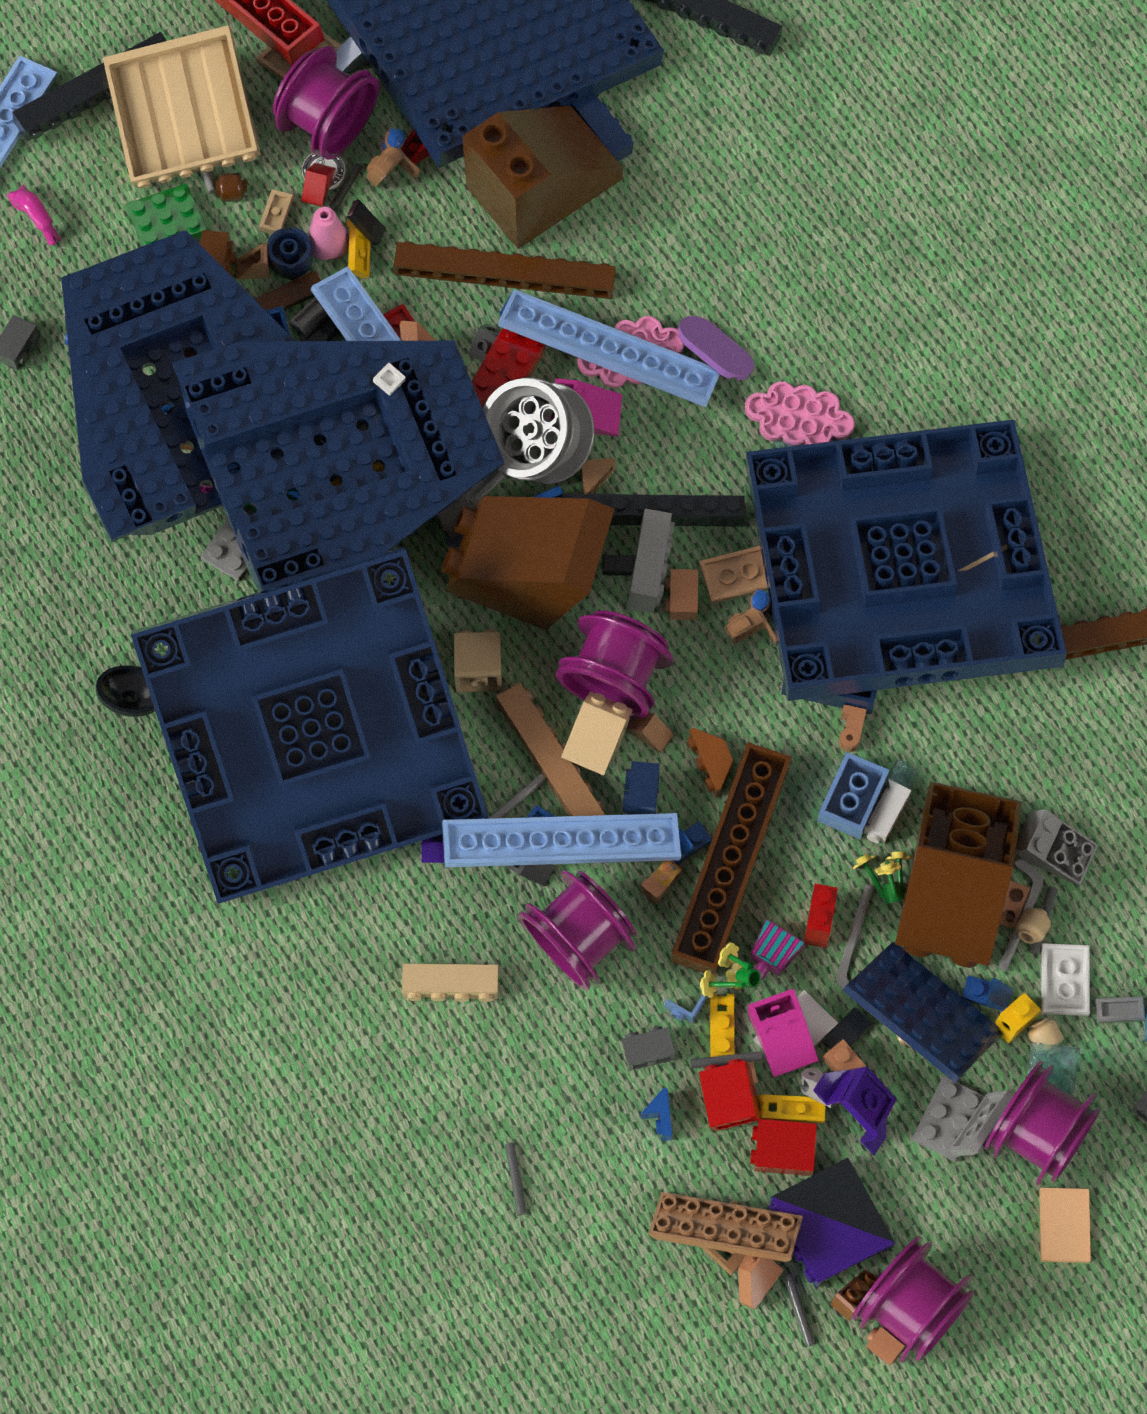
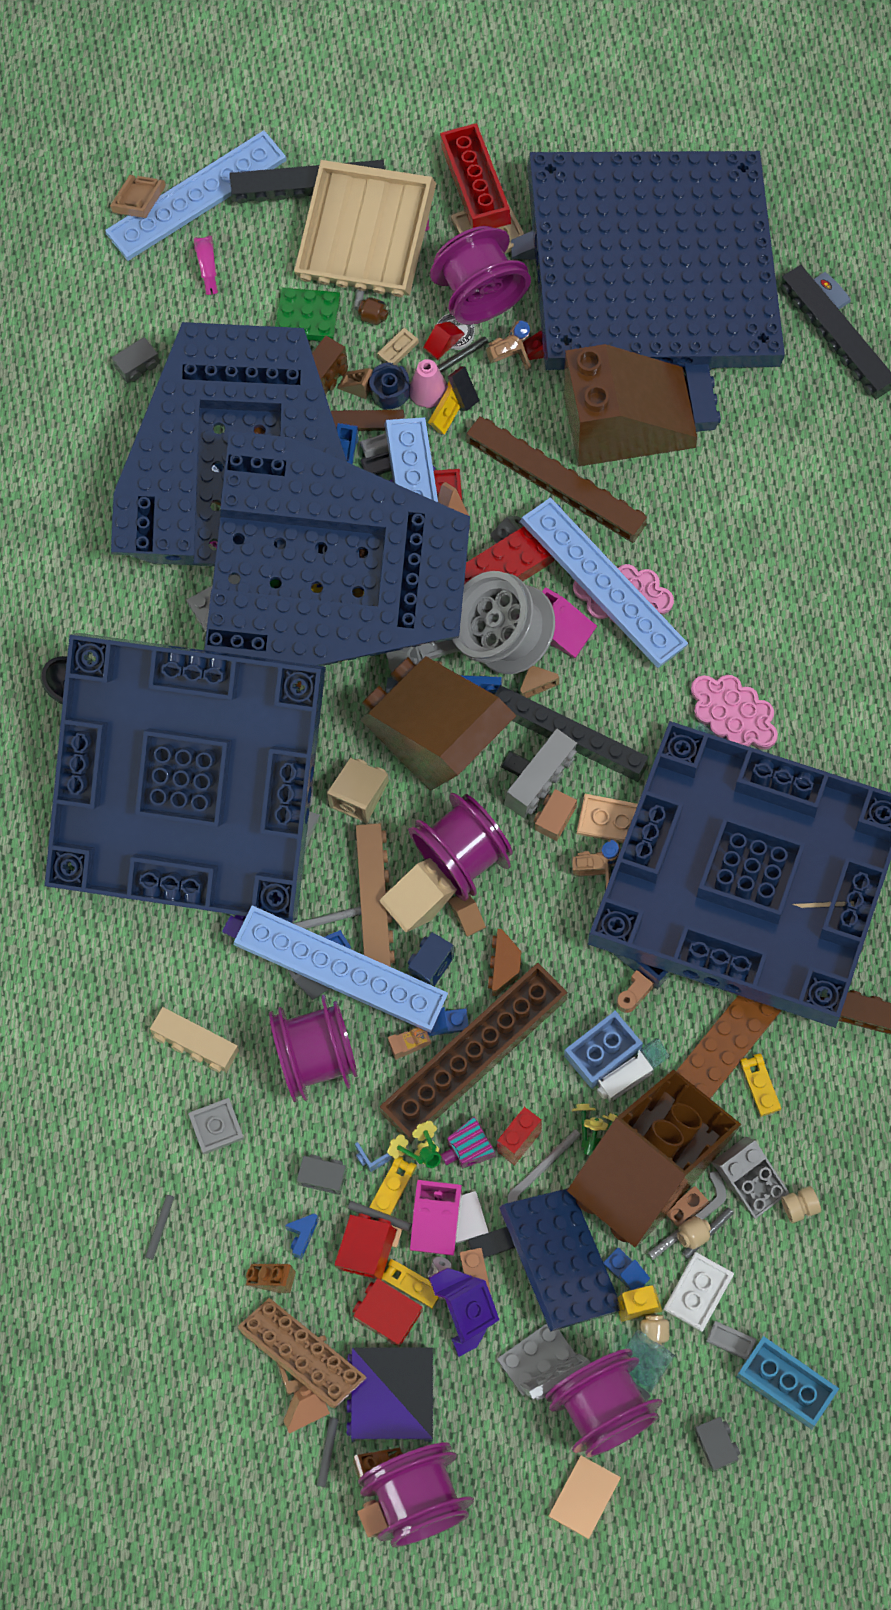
camera: 30 degrees right, 0 degrees up
(389, 379) = (396, 523): white plate -> none
(517, 1053) = (216, 1126): none -> light grey plate
(654, 1170) = (271, 1277): none -> dark orange slope
(715, 348) = (694, 622): medium lavender tile -> none
(965, 732) = (727, 1043): none -> dark orange plate
(1017, 757) = (760, 1085): none -> yellow plate
(1119, 846) = (798, 1205): none -> tan wheel

